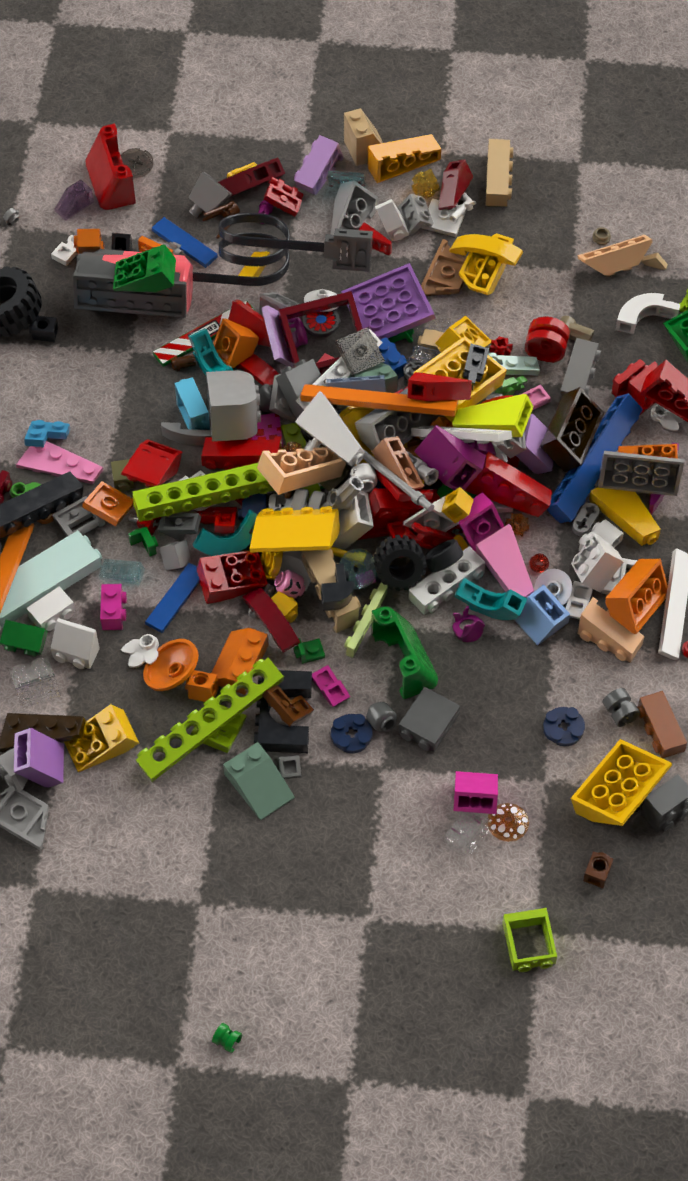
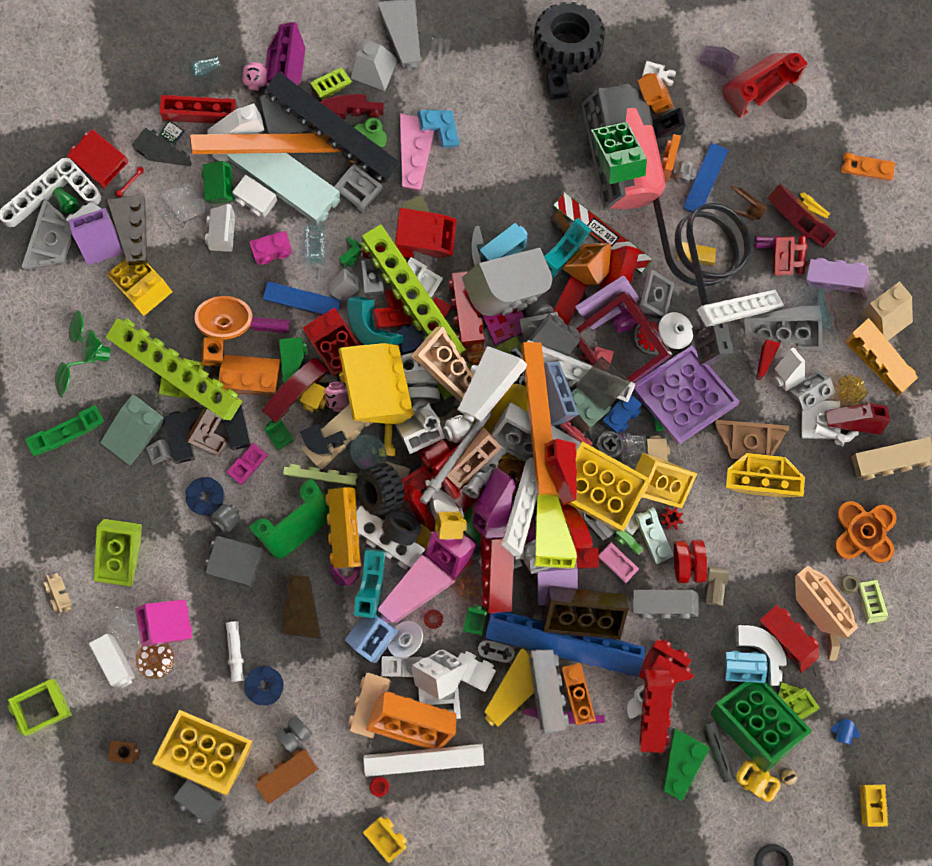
camera: 70 degrees right, 20 degrees up
(11, 216) = (681, 9): light grey plate -> none
(108, 503) = (378, 208): orange plate -> none
(140, 650) = (235, 288): white plate -> none
(165, 778) = (91, 351): none -> green plant
(194, 625) = (270, 325): none -> magenta slope
(207, 195) = (763, 182): light grey torso -> none
(222, 123) = (868, 167): none -> orange plate
(234, 616) = (292, 356): none -> green slope
(237, 845) = (65, 432): none -> green slope
(328, 223) = (740, 307): none -> white tile
(385, 826) = (116, 552): none -> lime slope
(403, 899) = (53, 587): none -> tan hinge
(430, 601) = (344, 527): none -> light orange slope
(475, 363) = (611, 498): hinge -> none
(487, 245) = (781, 472): yellow slope -> none
(496, 670) = (300, 609): none -> dark brown wedge
(501, 851) = (112, 661): none -> white brick
(546, 746) = (235, 660): none -> white pin
(550, 527) = (475, 620): none -> green bracket
(558, 212) = (876, 522): none -> orange plant
(633, 229) = (871, 618): none -> yellowish green slope
(642, 281) = (791, 637): none -> red wedge
(656, 326) = (745, 667): none -> medium azure brick

